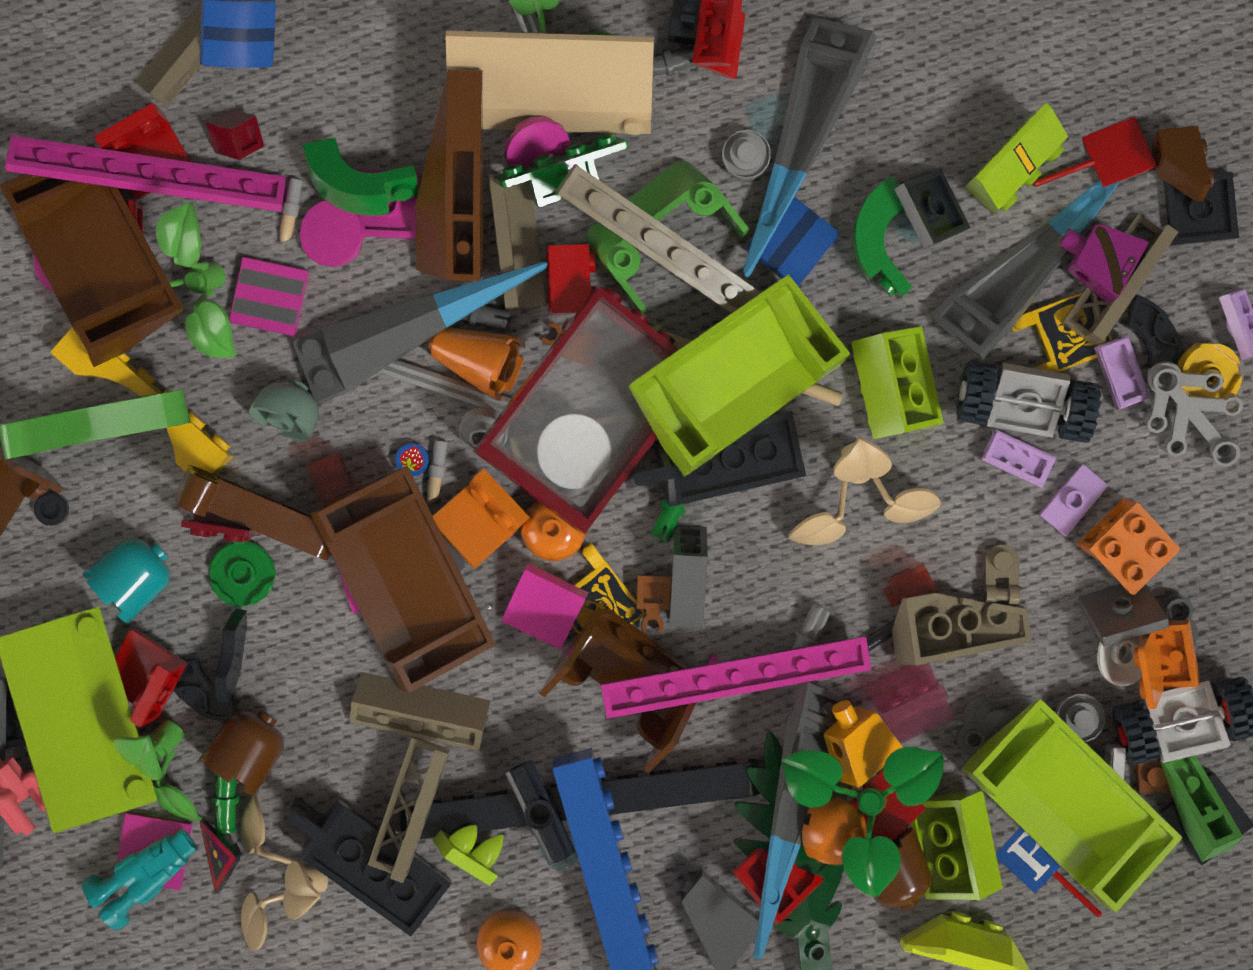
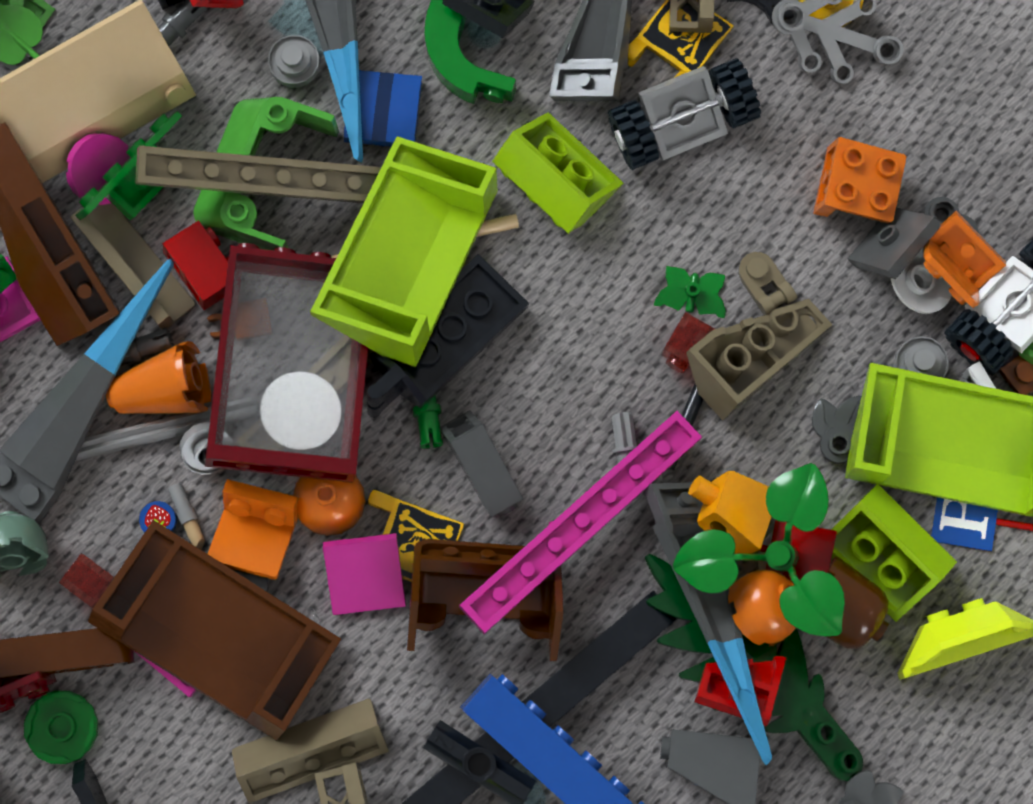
camera: 30 degrees left, 10 degrees down
(653, 596) = (460, 502): dark orange plate -> none
(857, 465) = (566, 258): tan plant -> none
(910, 701) = (759, 444): clear pink bracket -> none
(941, 544) = (693, 290): none -> green piece
(1018, 458) = (710, 171): lavender plate -> none
(1073, 500) = (784, 177): lavender plate -> none
(1122, 372) = (751, 40): lavender plate -> none

